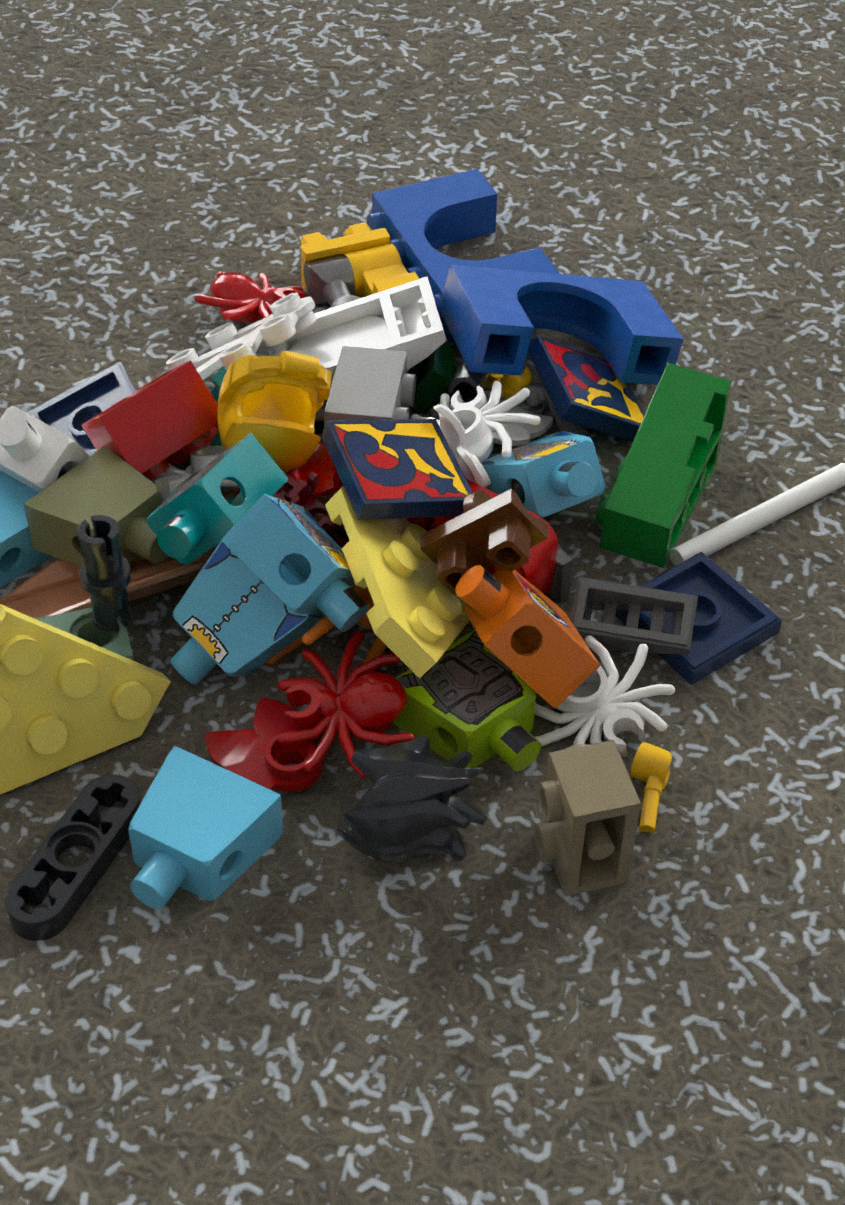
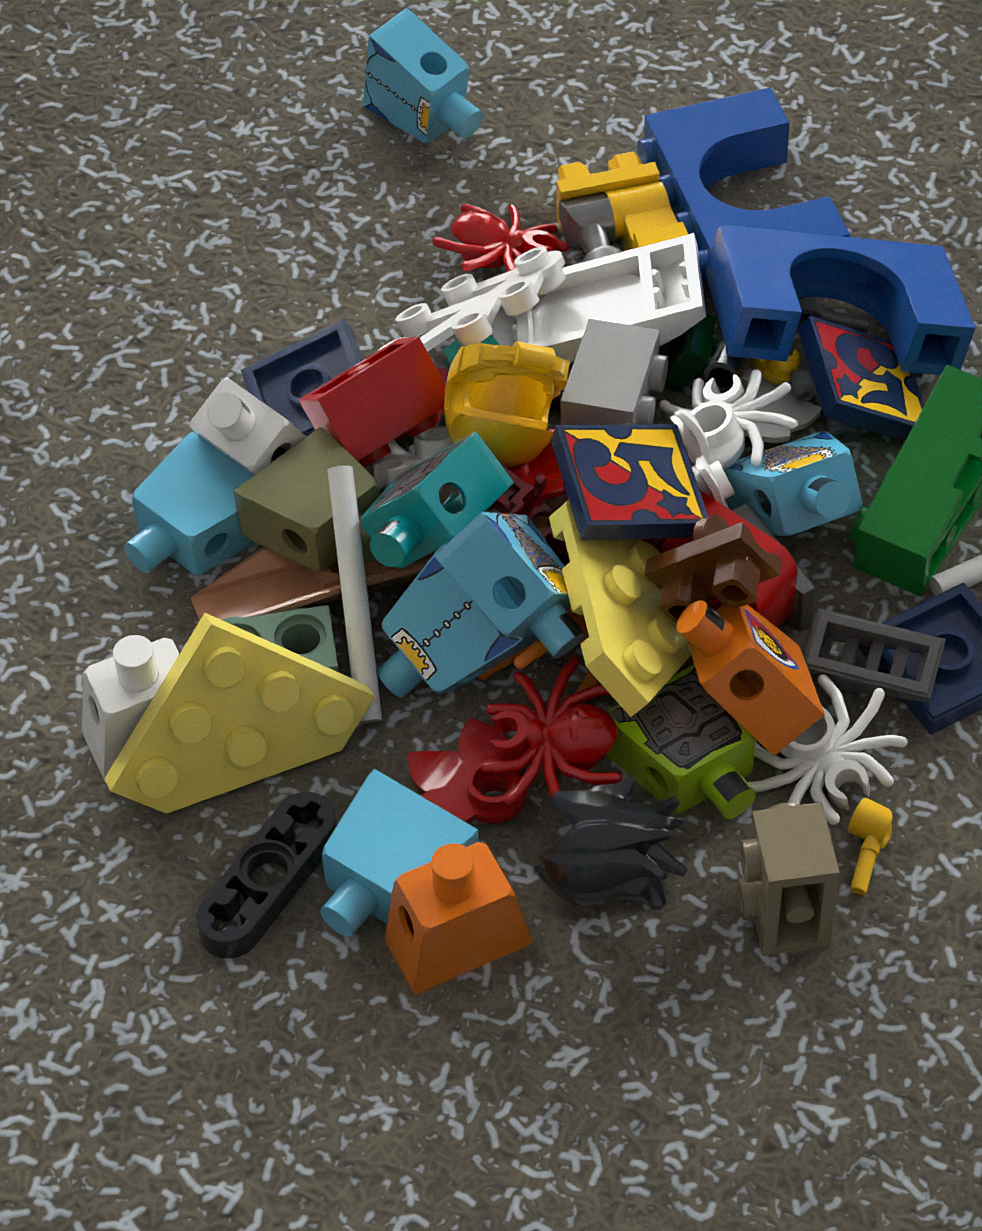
camera: 10 degrees right, 5 degrees up
(105, 572) = (313, 580): black pin -> none
(143, 581) = (354, 584): none -> white bar
(171, 176) = (417, 81): none -> medium azure torso
(263, 879) = (453, 916): none -> orange torso

